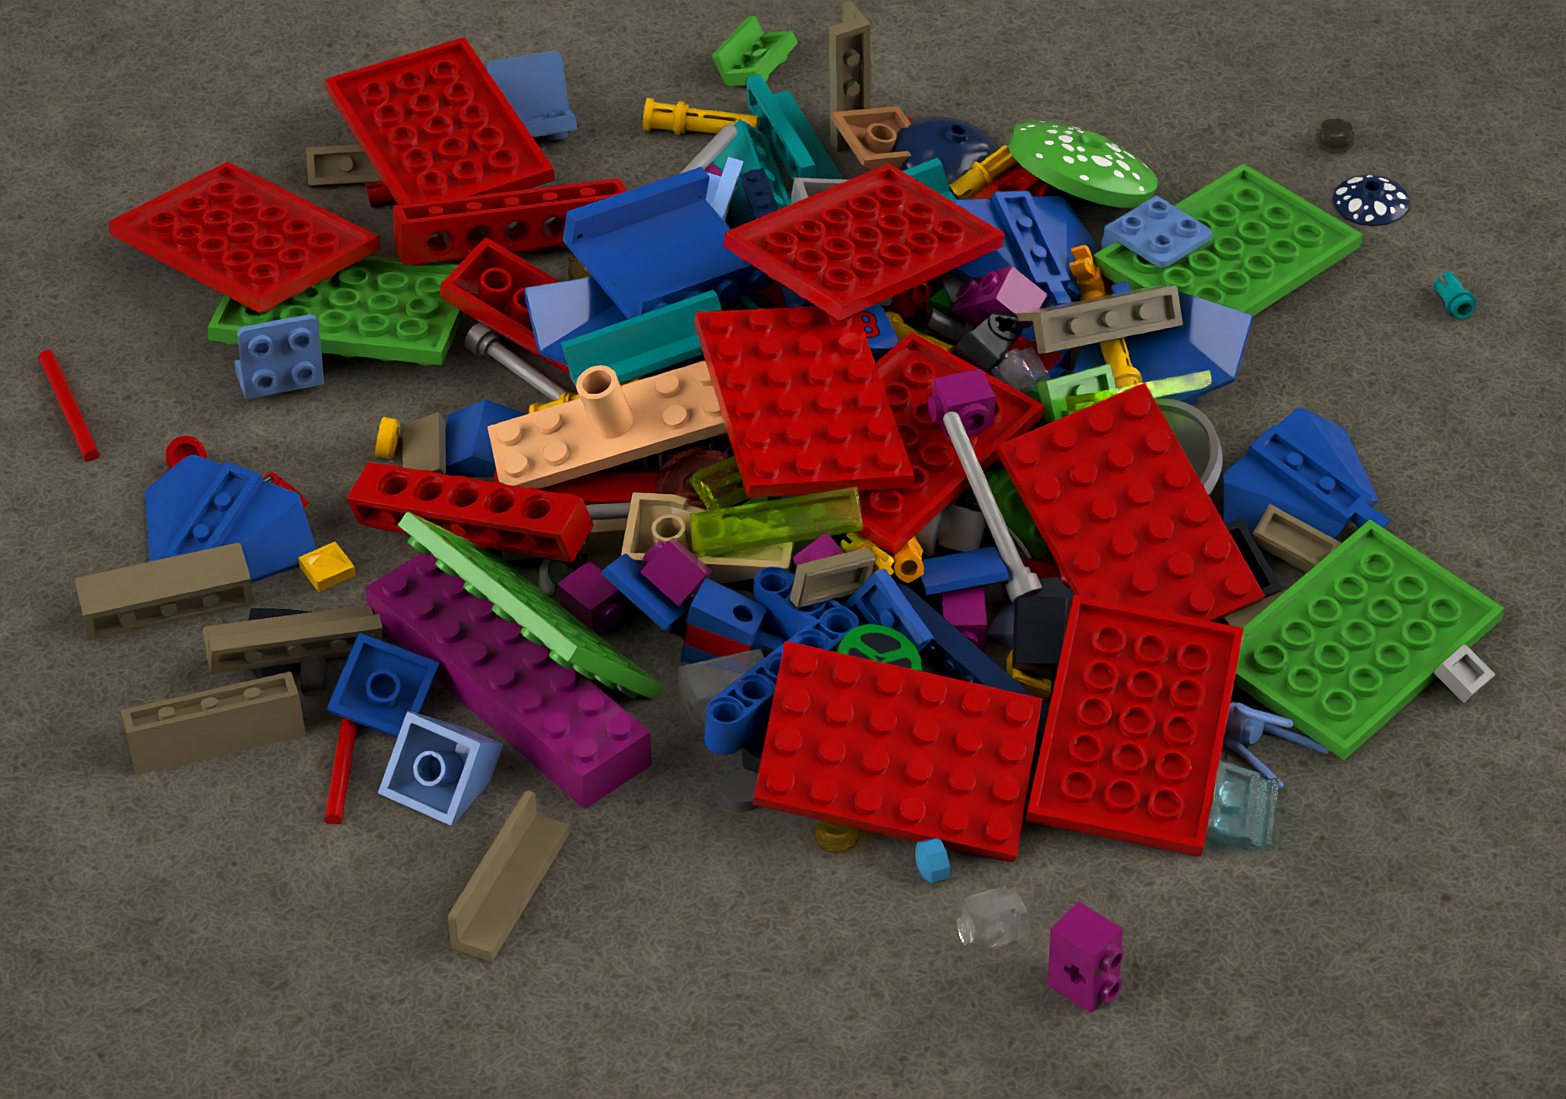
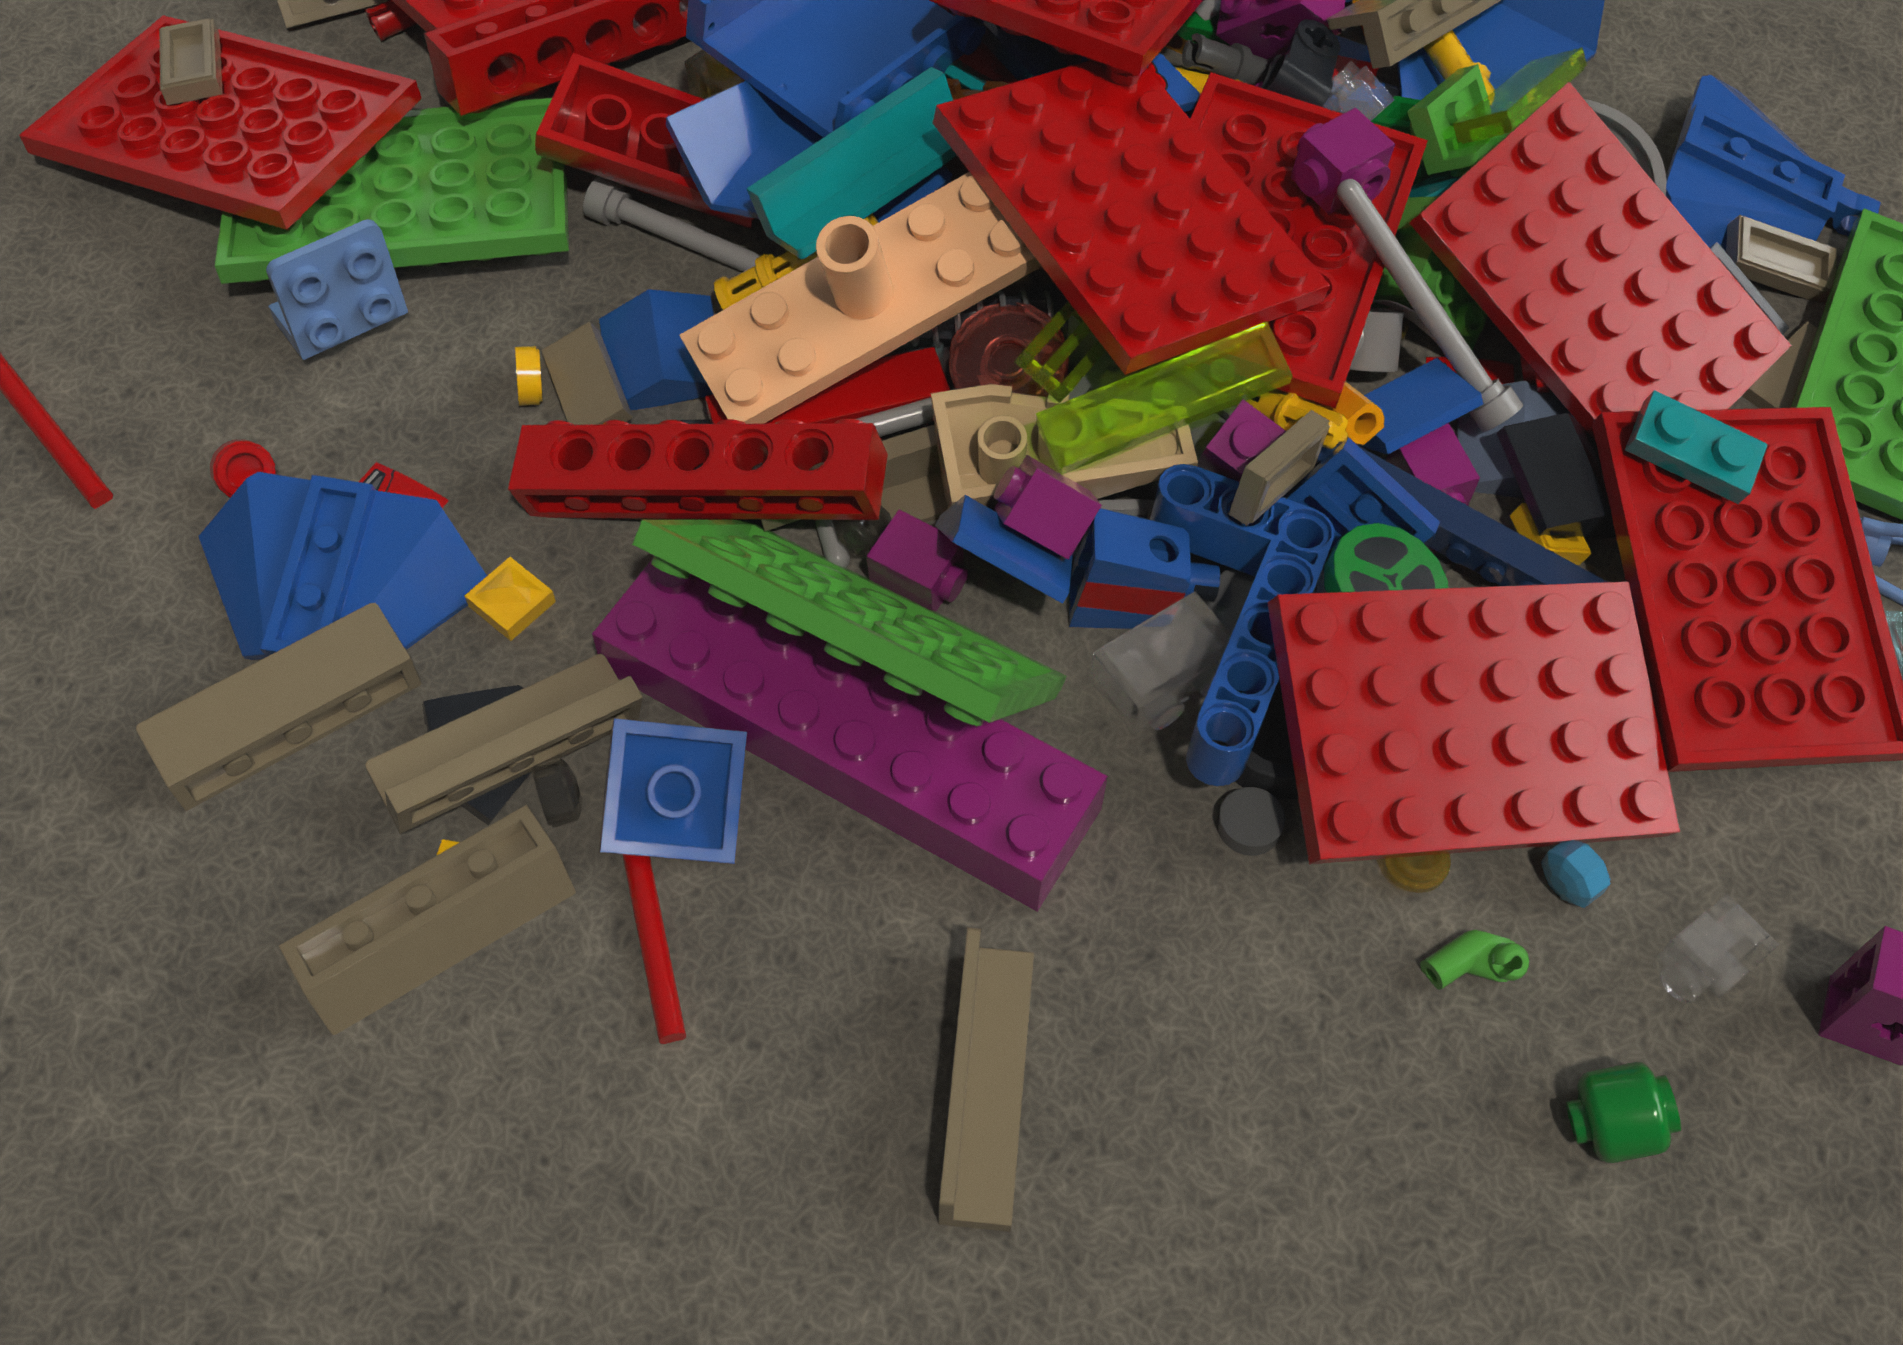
camera: 20 degrees left, 15 degrees up
(234, 195) = (190, 61): none -> dark tan tile
(439, 767) = (805, 908): medium blue slope -> none
(846, 890) = (1477, 955): none -> bright green arm
(889, 983) = (1624, 1112): none -> green head
(1126, 628) = (1696, 447): none -> teal plate

